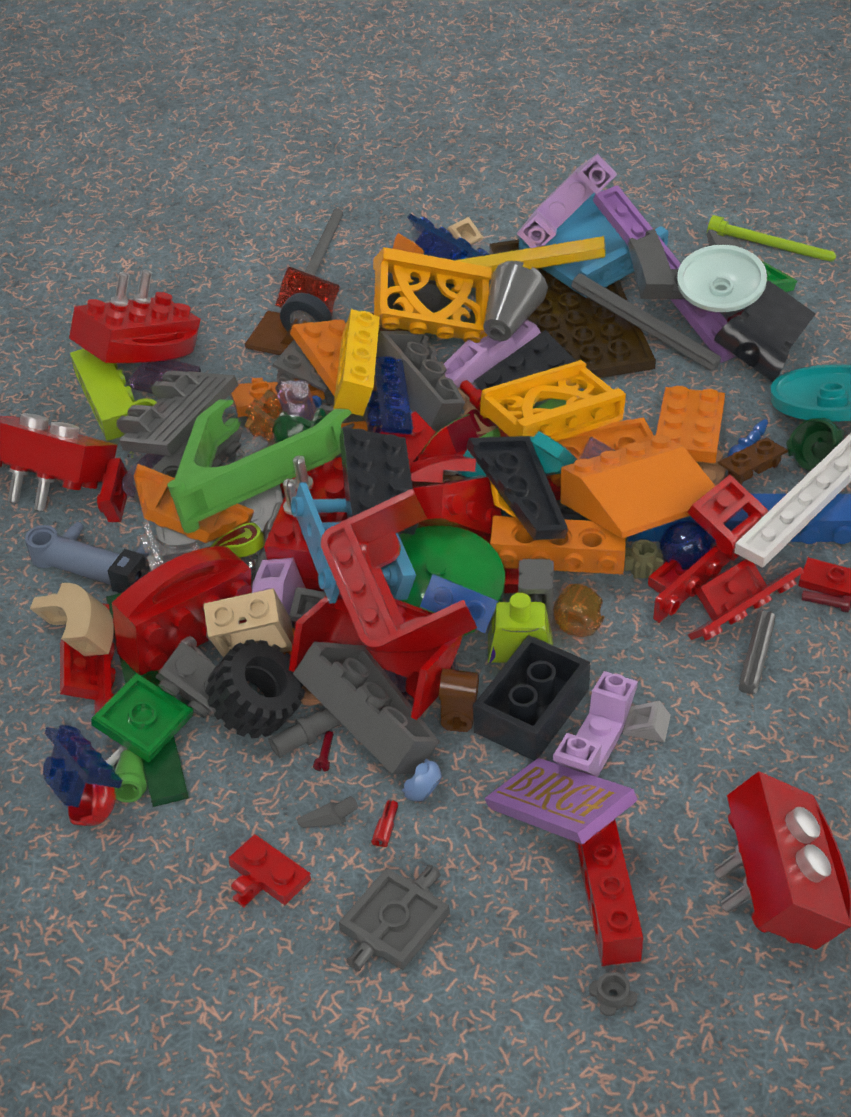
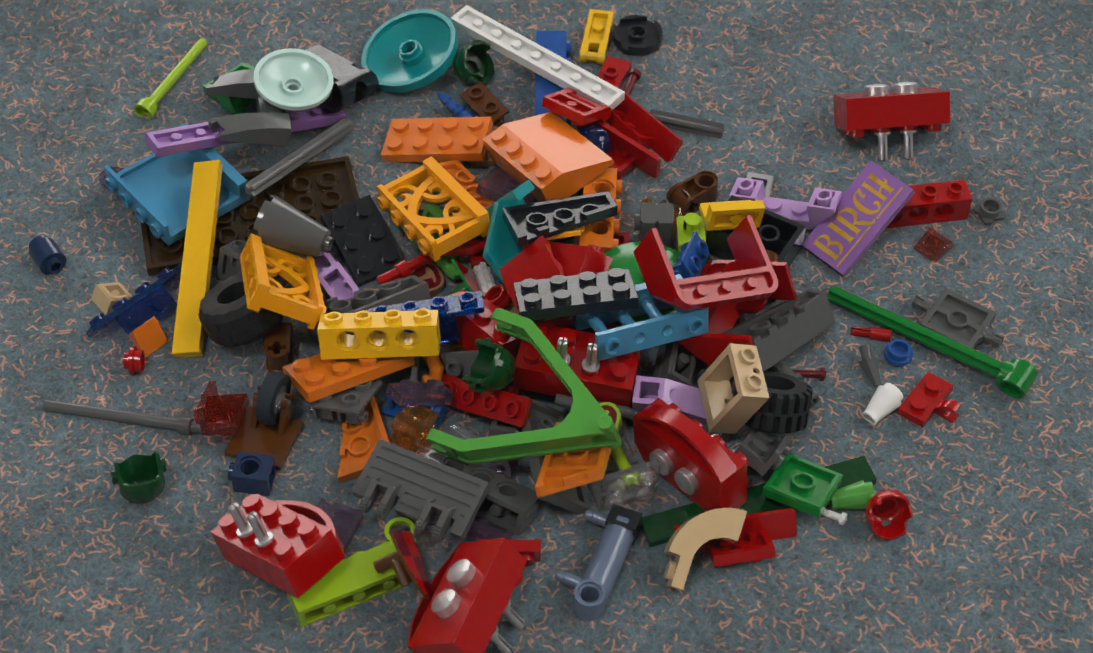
camera: 95 degrees left, 5 degrees up
(74, 765) = (867, 521): clear blue bracket -> none
(95, 403) = (405, 562): none -> shield
(235, 325) = (262, 473): none -> dark blue brick
(238, 259) = (140, 477): none -> dark green cap
(263, 817) = (884, 401): none -> white cone
(288, 966) = (1011, 376): none -> green piece
(346, 846) = (898, 352): none -> blue plate
(373, 242) = (134, 360): none -> red plate
(423, 782) = (843, 304): medium blue plate -> none
(509, 189) = (47, 255): none -> dark blue brick
(544, 648) = (730, 213): none -> yellow panel
(545, 914) = (933, 245): none -> clear red slope
(565, 200) = (150, 134): lavender slope -> none
(619, 650) = (694, 191): none -> reddish brown piece

